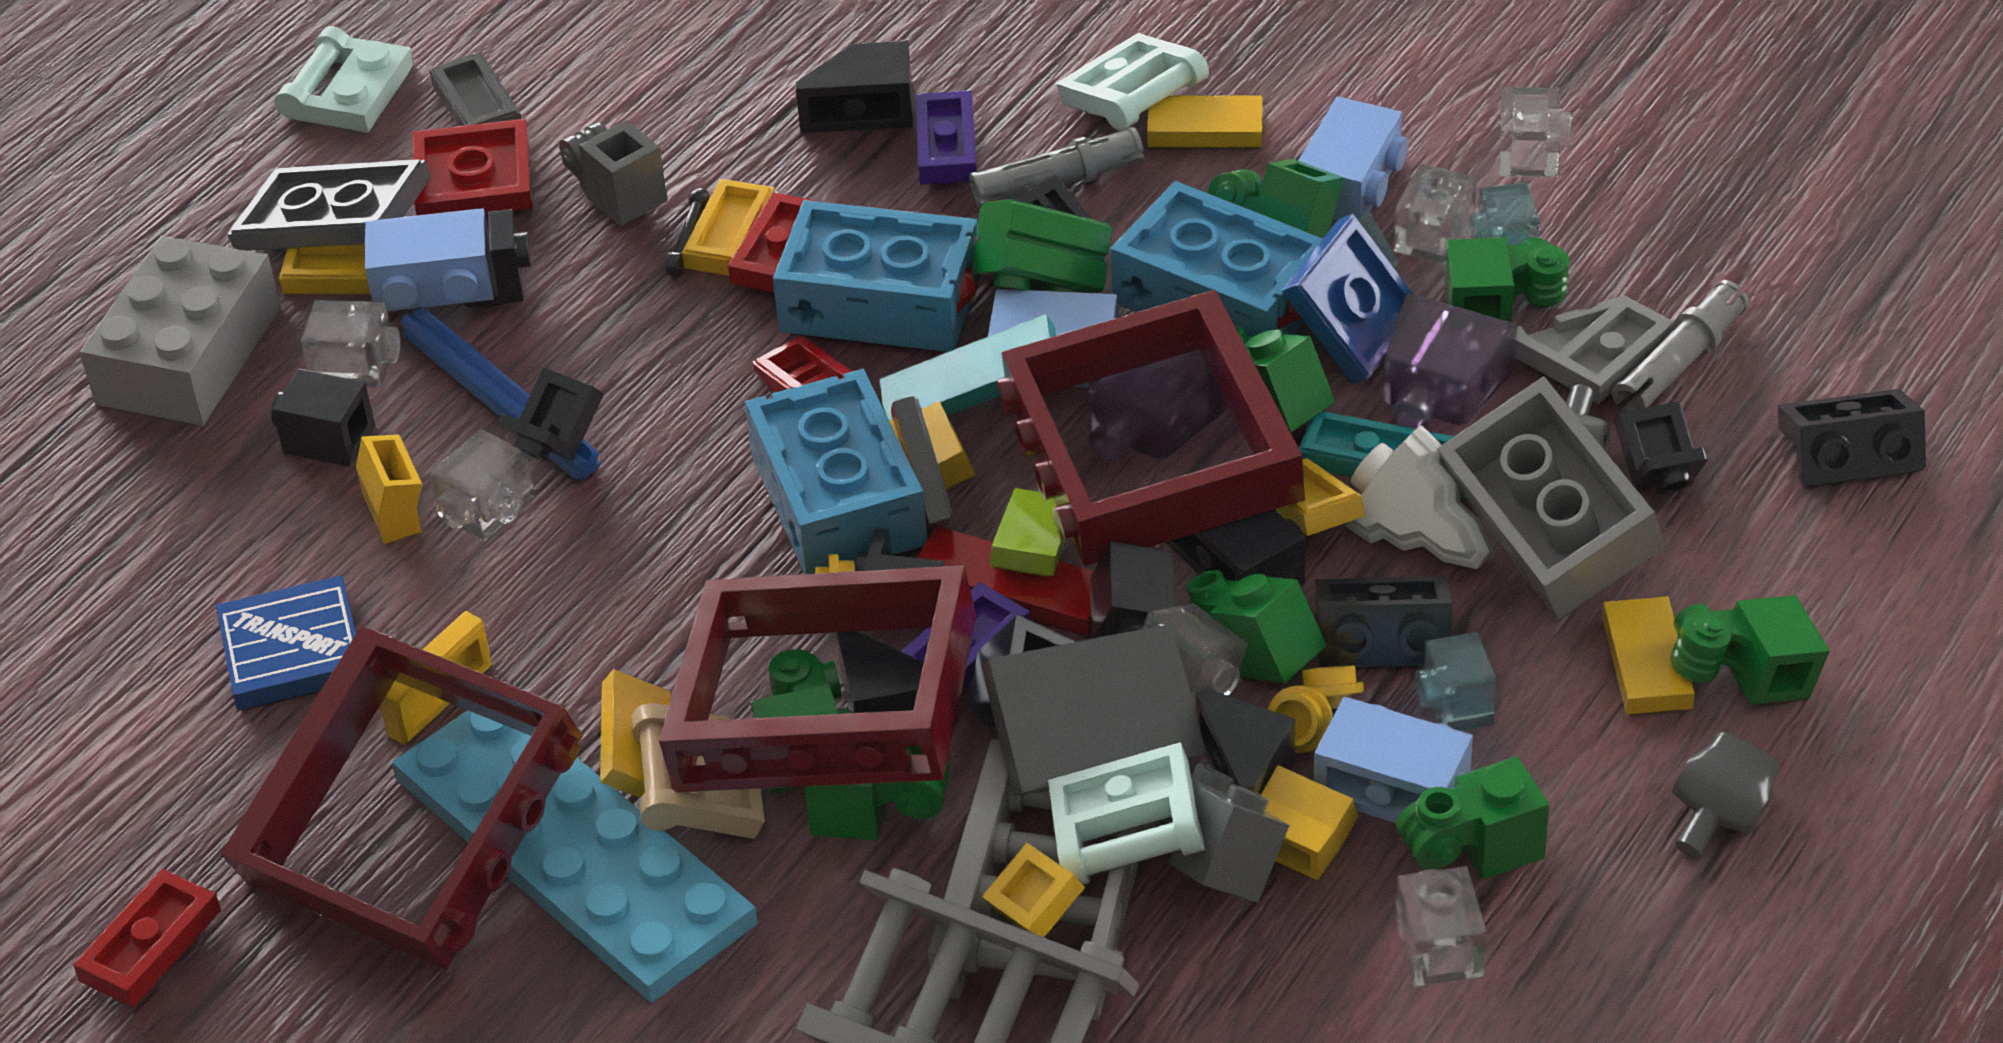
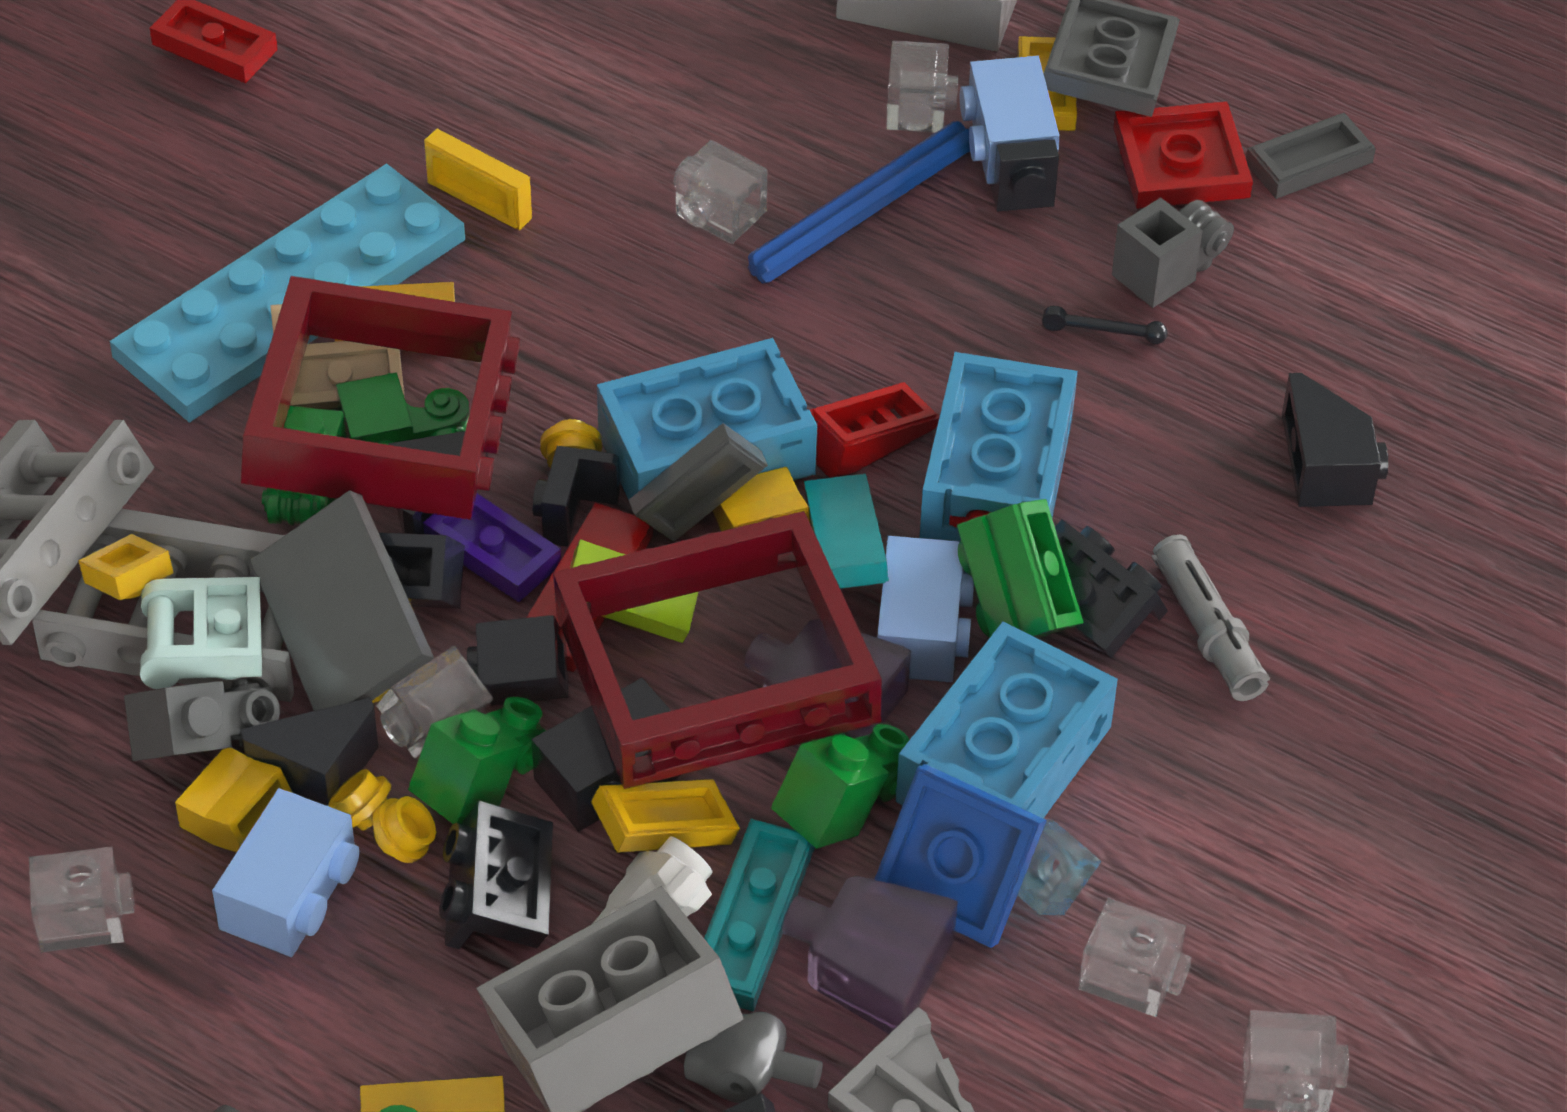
camera: 85 degrees right, 5 degrees up
(285, 640) = (546, 94): blue tile -> none
(323, 417) = (816, 79): black brick -> none
(324, 745) = (414, 104): dark red window -> none
(359, 89) = (1325, 70): light aqua plate -> none
(389, 486) = (725, 118): yellow piece -> none
(554, 416) = (777, 221): black bracket -> none
(724, 225) = (1115, 357): yellow tile -> none
(764, 244) = (1102, 394): red plate -> none
(945, 137) = (1256, 520): dark purple plate -> none
(1132, 79) = (1369, 667): light aqua plate -> none
(1205, 122) = (1310, 757): yellow tile -> none
(1289, 193) = (1129, 802): green brick -> none
(1363, 147) = (1225, 878): light blue brick -> none
(1457, 682) = (391, 934): clear light blue plate -> none
(1489, 273) = (1014, 1000): green brick -> none
(1489, 814) = (193, 932): green brick -> none
(1505, 213) = (1112, 1027): clear light blue plate -> none

